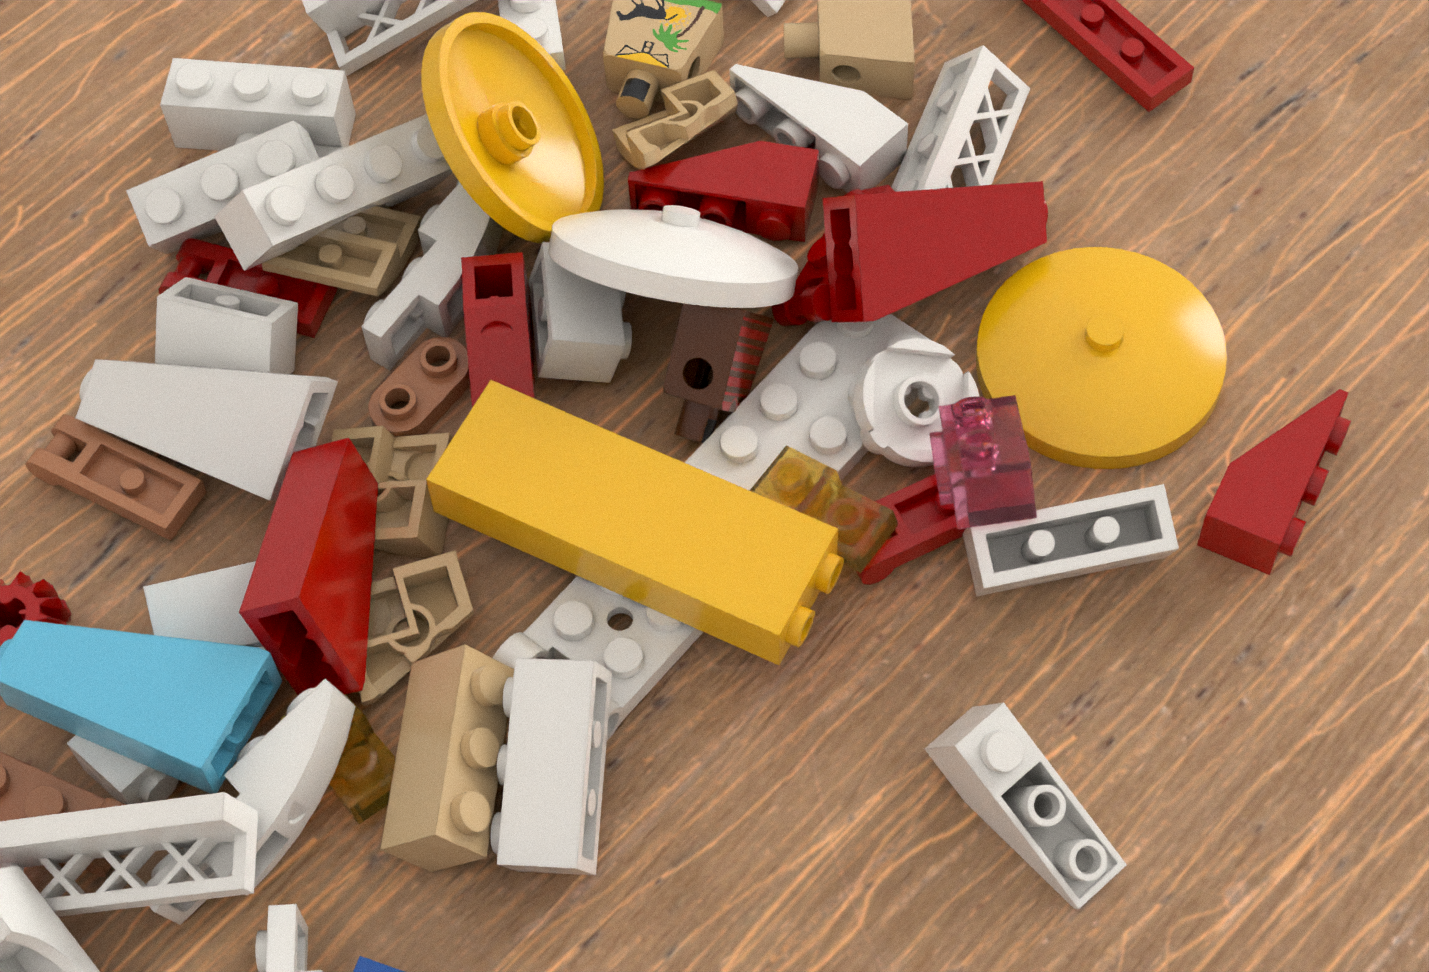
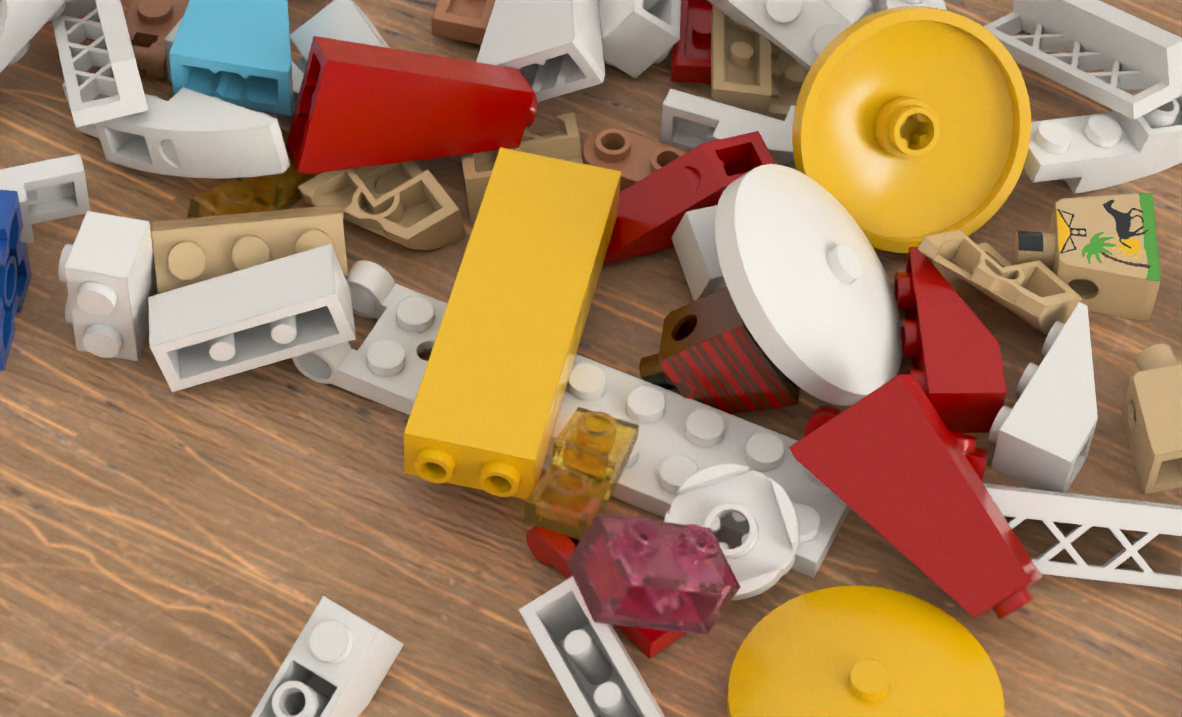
camera: 70 degrees right, 10 degrees down
(475, 898) = (109, 285): none -> white brick

